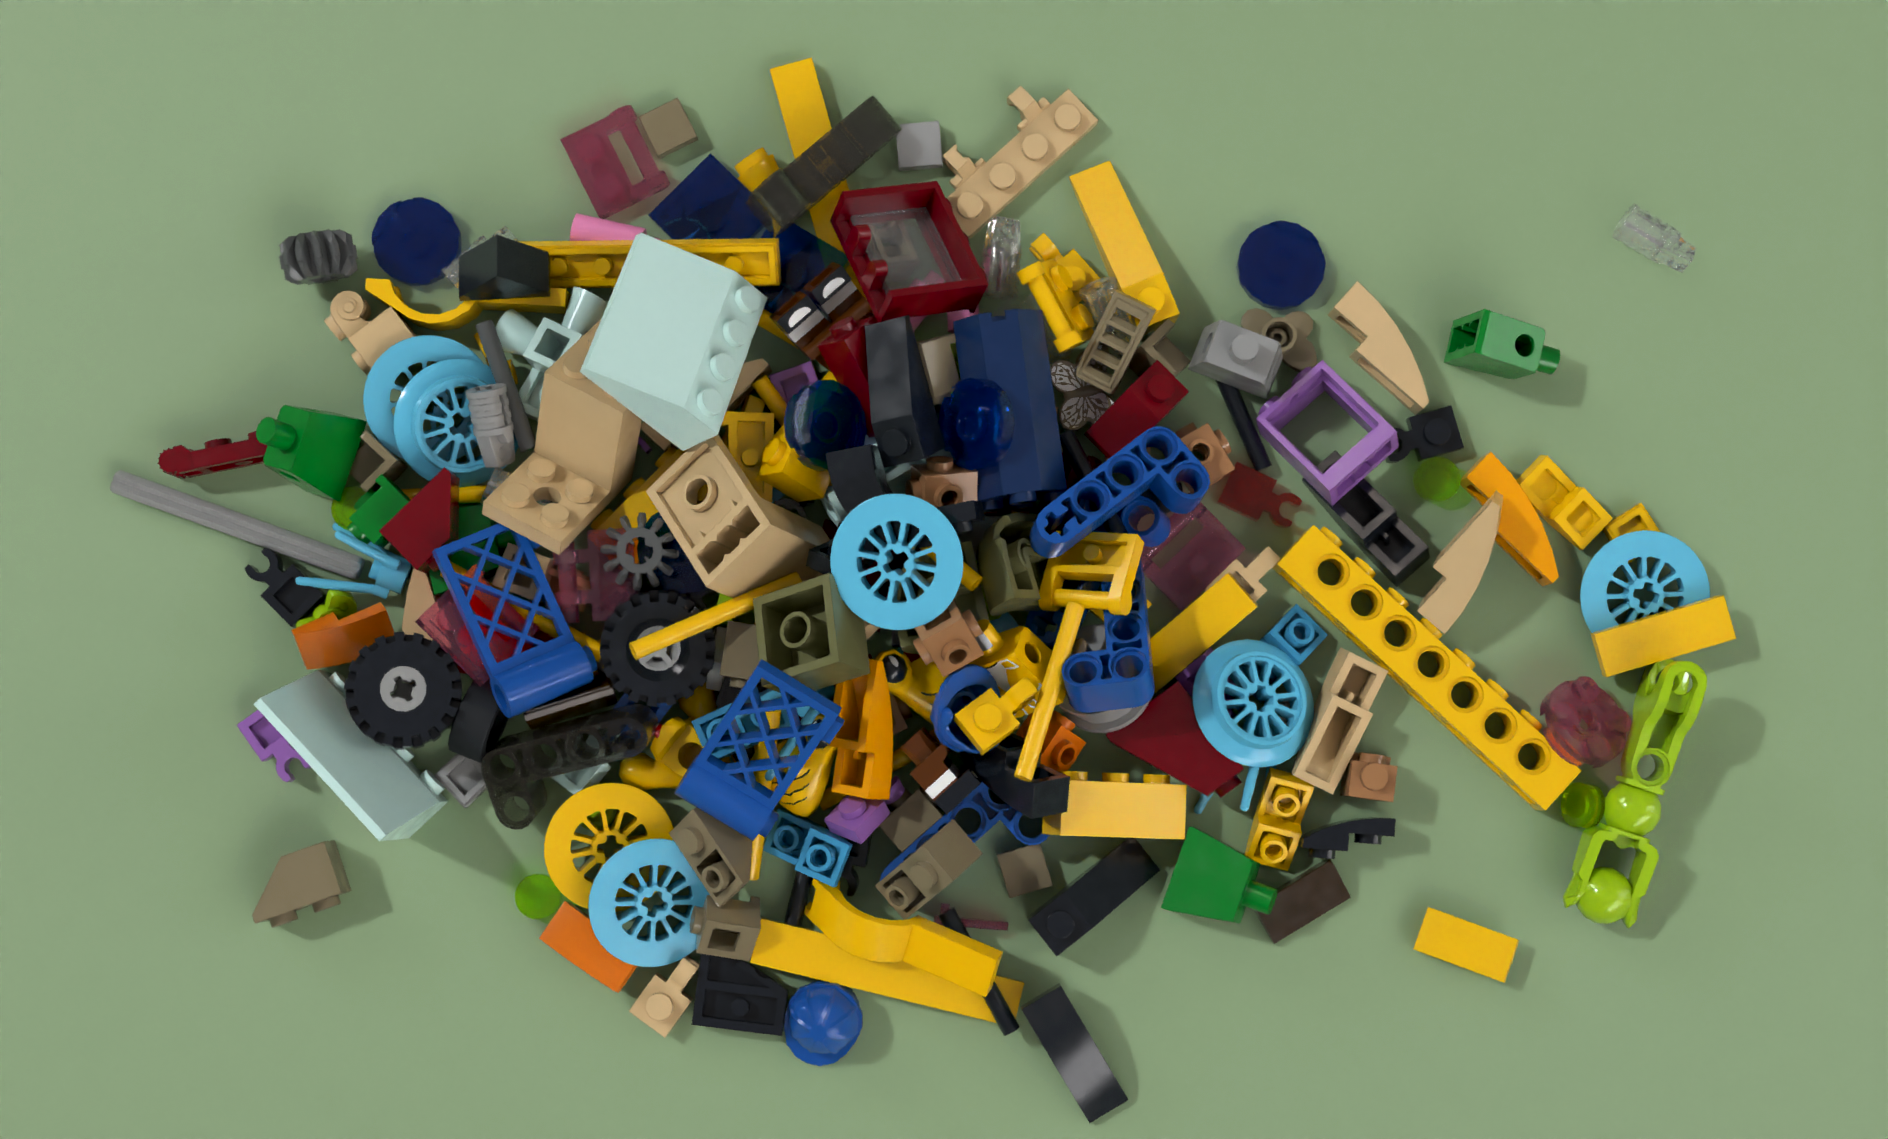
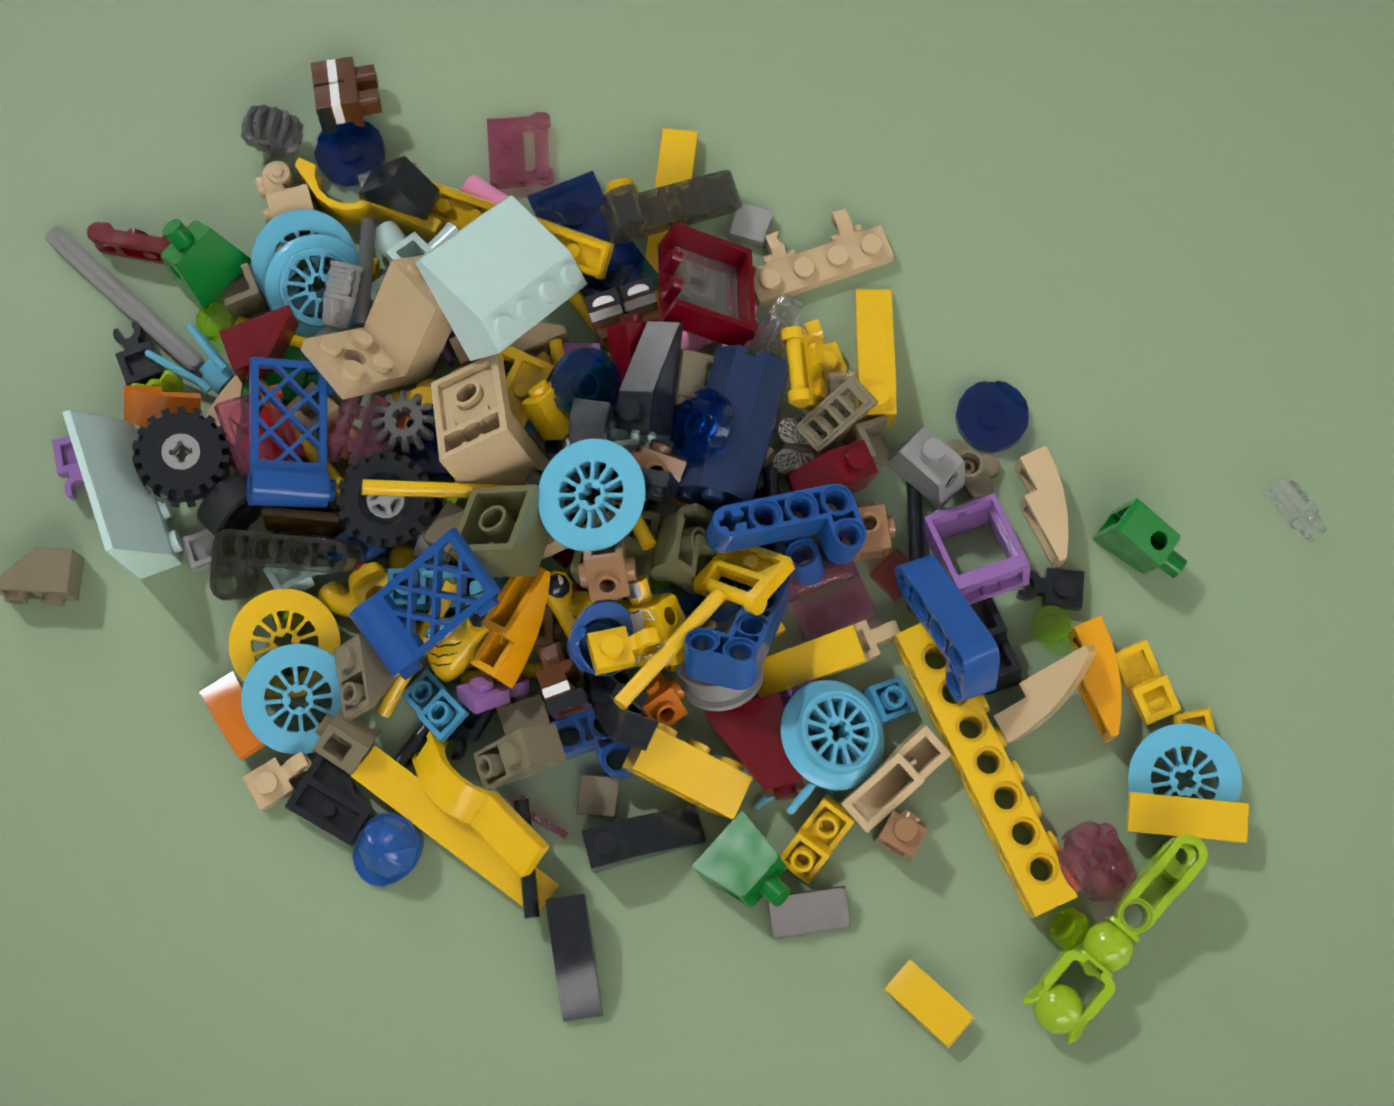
camera: 25 degrees right, 10 degrees down
(375, 181) = (342, 94): none -> reddish brown hips
(375, 510) = (222, 319): green brick -> none
(537, 896) = (214, 661): clear neon green tile -> none
(668, 128) = (570, 142): dark tan tile -> none
(1335, 836) = (853, 869): black slope -> none
(1336, 531) = (952, 625): none -> blue beam

